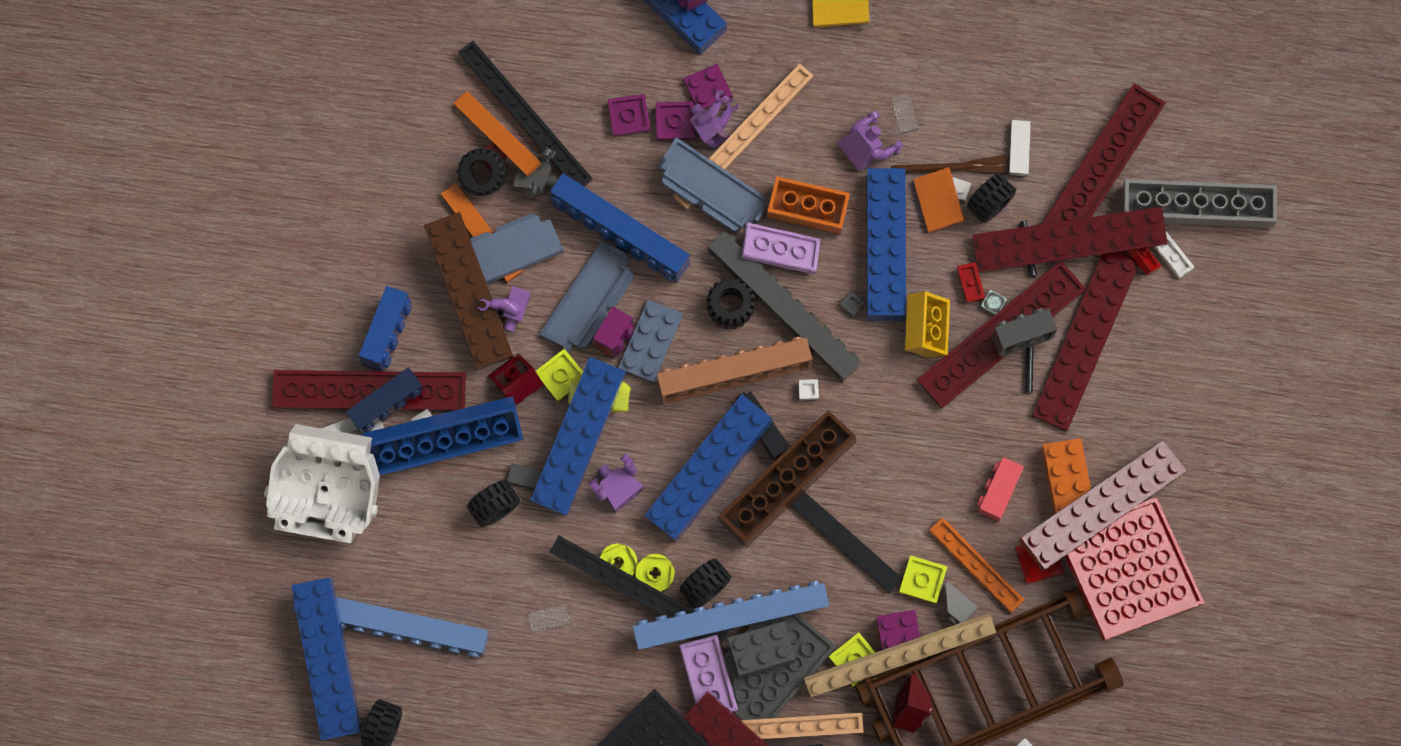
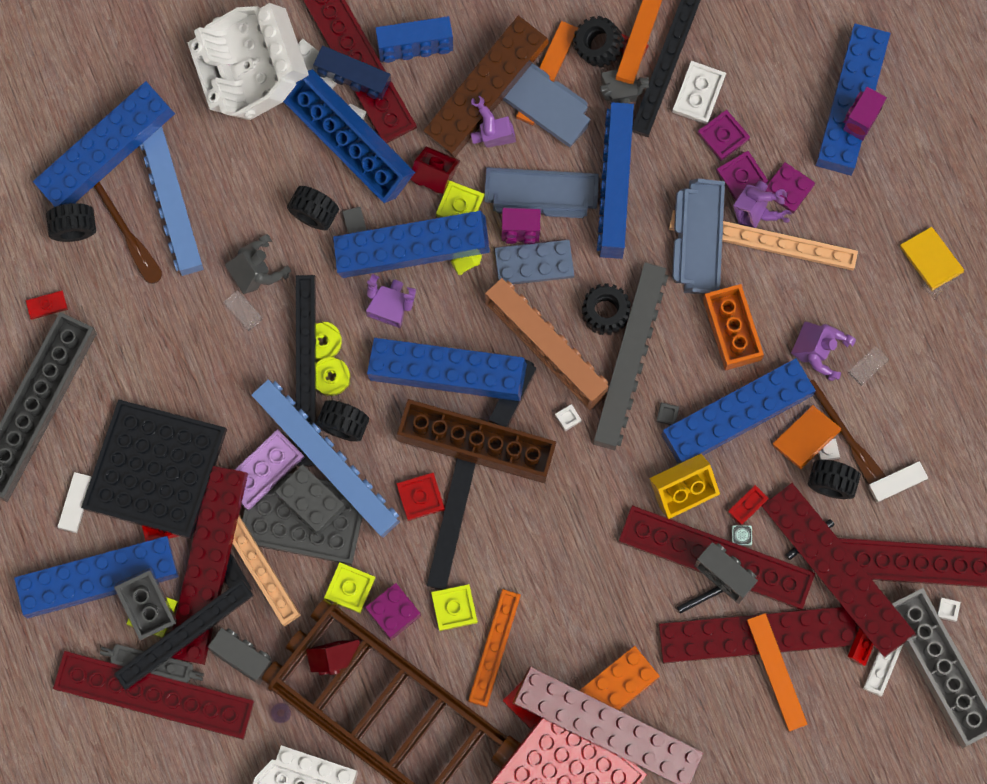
camera: 60 degrees right, 0 degrees up
(441, 682) = (144, 261): none -> reddish brown piece
(516, 588) = (250, 269): none -> dark grey torso
(577, 113) = (699, 92): none -> white plate
(780, 248) = (680, 325): lavender tile -> none
(808, 555) = (420, 496): none -> red plate
(900, 655) = (372, 622): tan plate -> none
(958, 606) = (446, 650): light grey slope -> none
(999, 488) = (574, 631): coral brick -> none
(1128, 340) = (777, 672): none -> orange tile
(1151, 170) = (948, 609): none -> white plate

